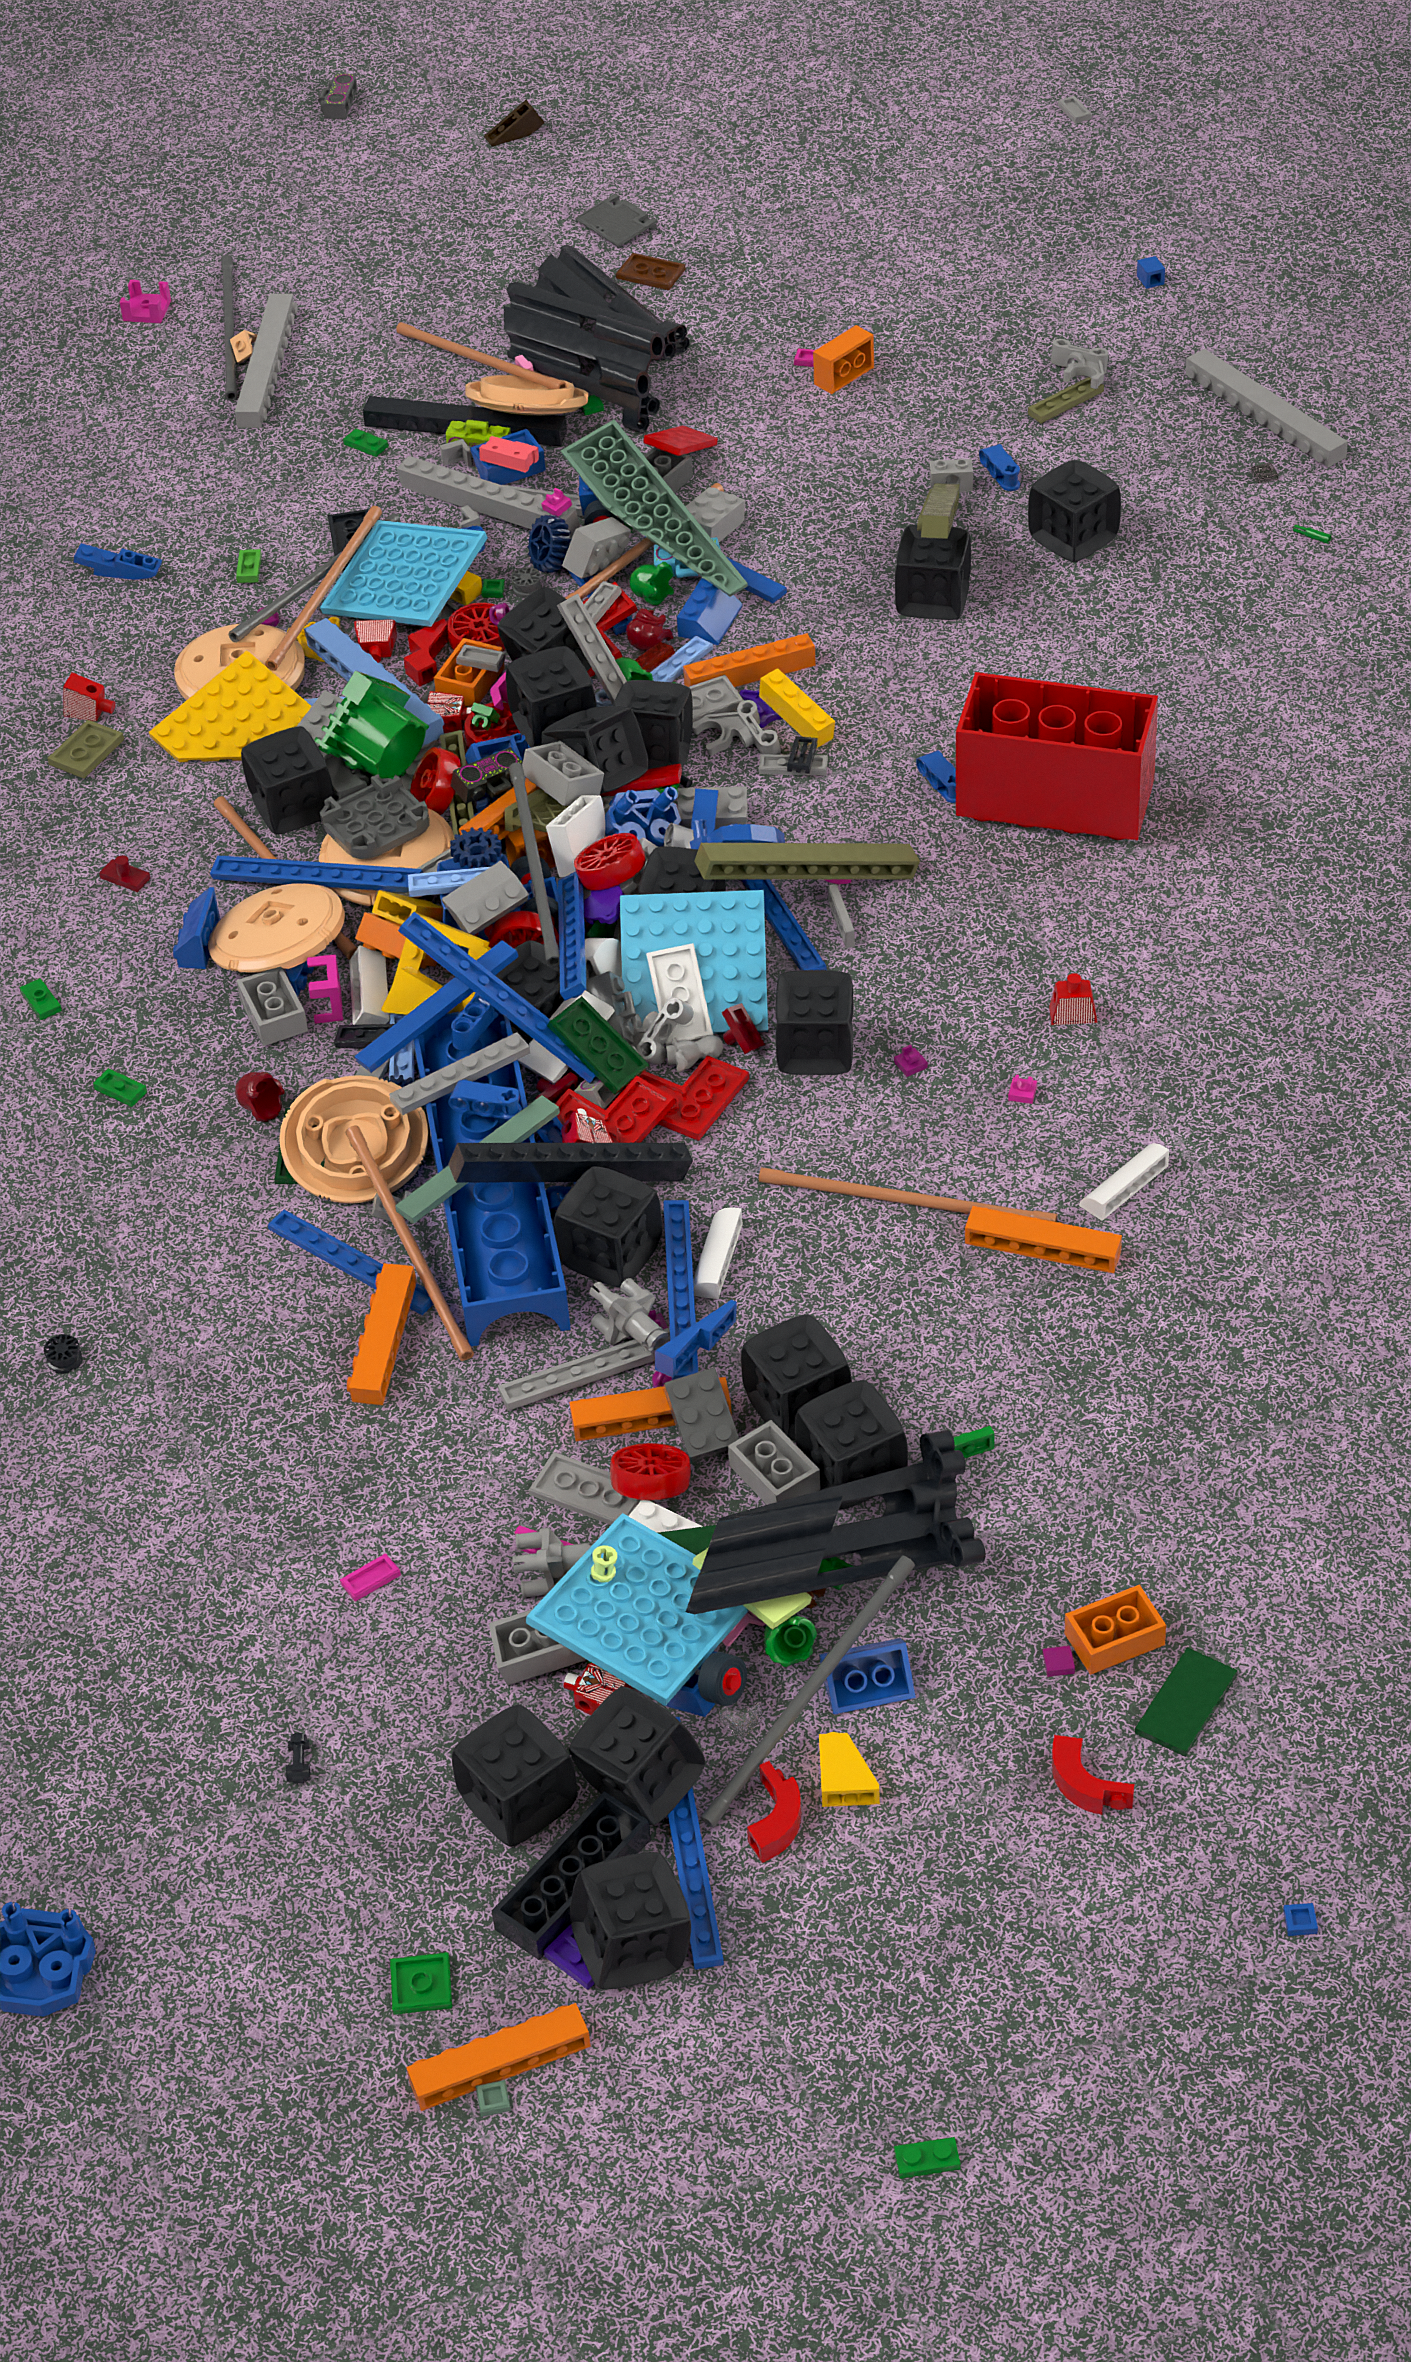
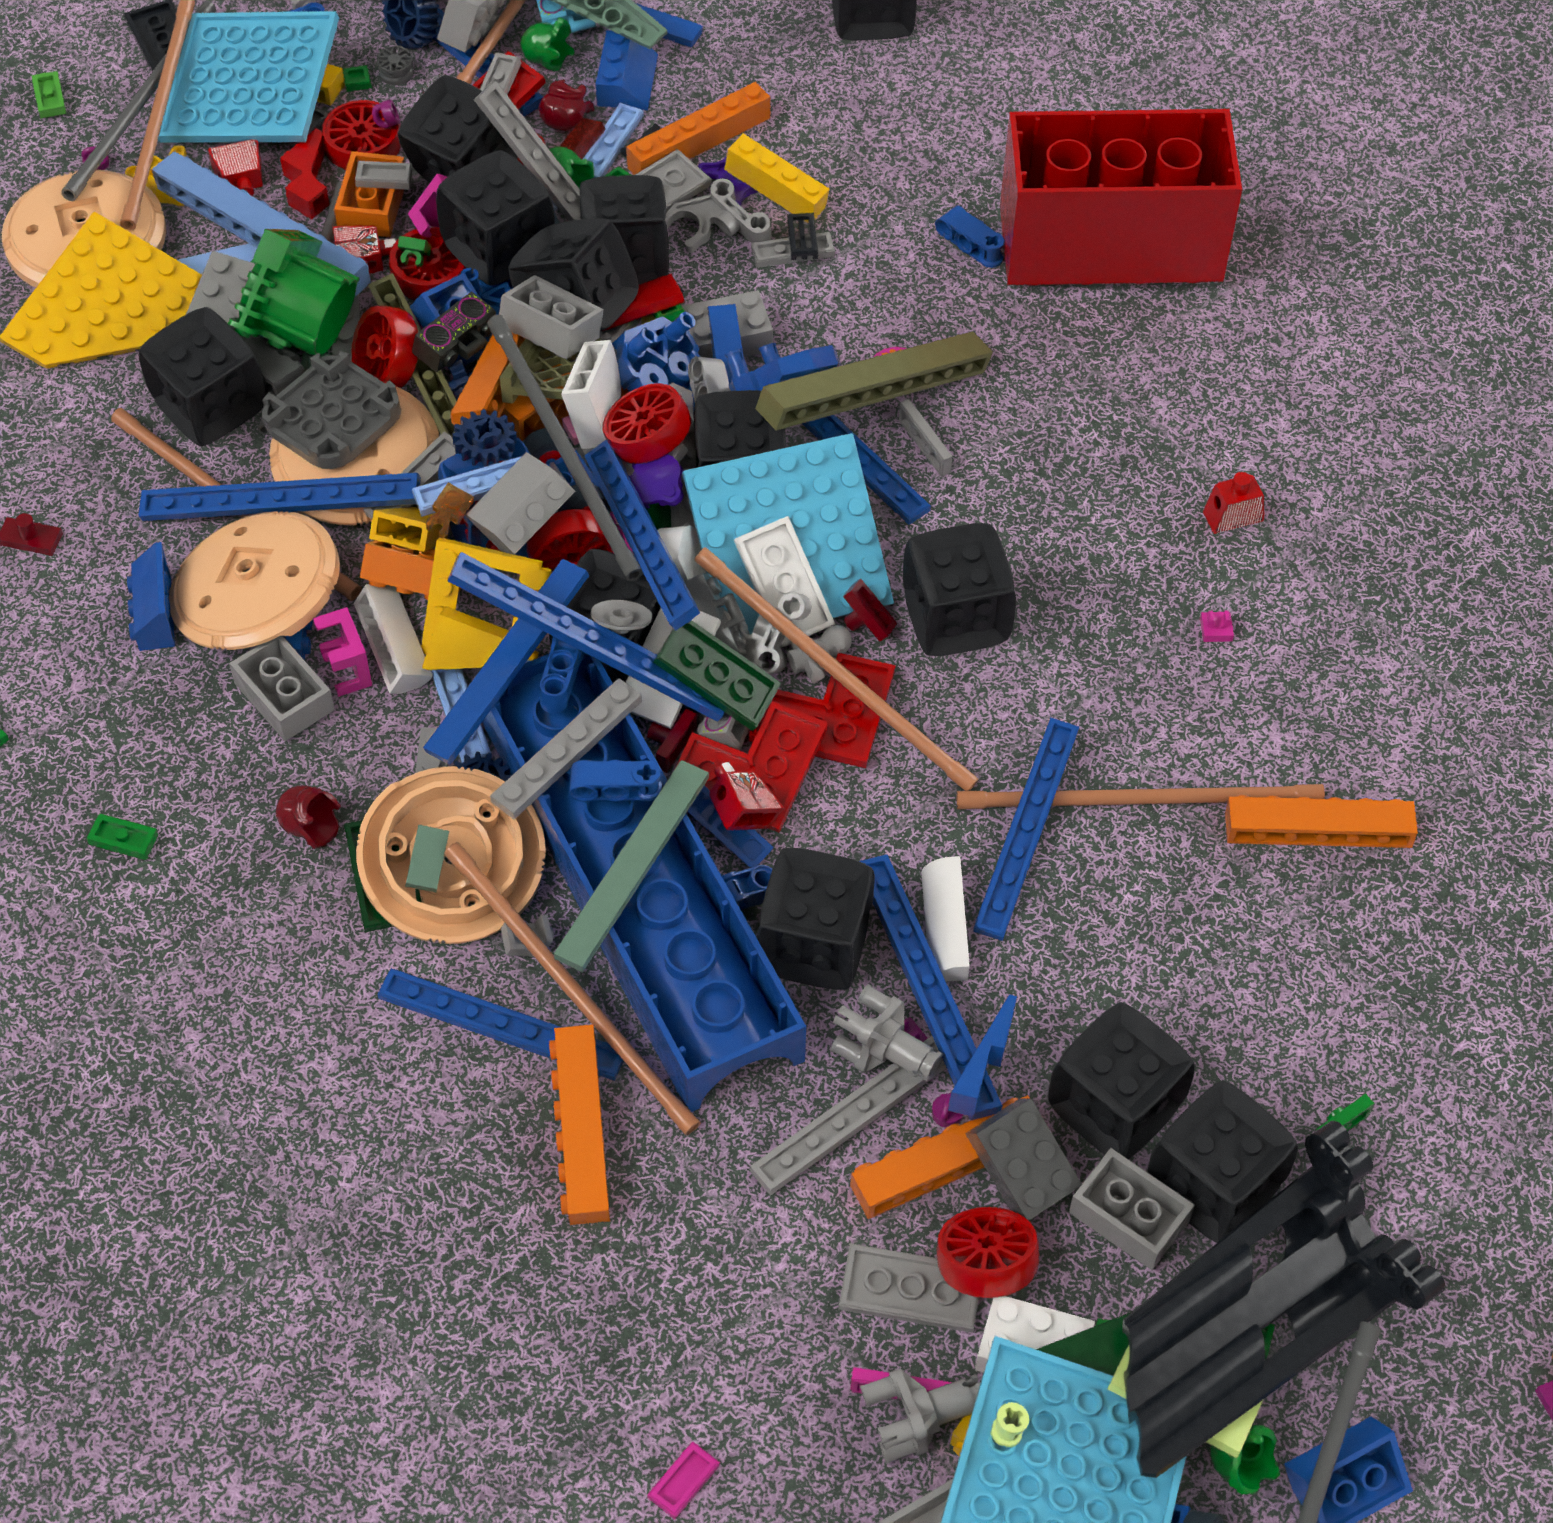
camera: 20 degrees left, 10 degrees up
(65, 1346) = (174, 1241): black wheel -> none
(332, 1135) = (427, 858): none -> sand green tile
(359, 1035) = (416, 702): black tile -> none
(431, 891) = (449, 506): none -> clear orange plate
(531, 987) = (621, 615): none -> light grey dish
(567, 1161) = (743, 846): black brick -> none
(765, 1152) = (952, 768): none -> nougat piece
(804, 1201) = (1026, 829): none -> blue tile
(910, 1061) = (1074, 613): magenta tile -> none
(1126, 1181) = (1380, 723): white brick -> none

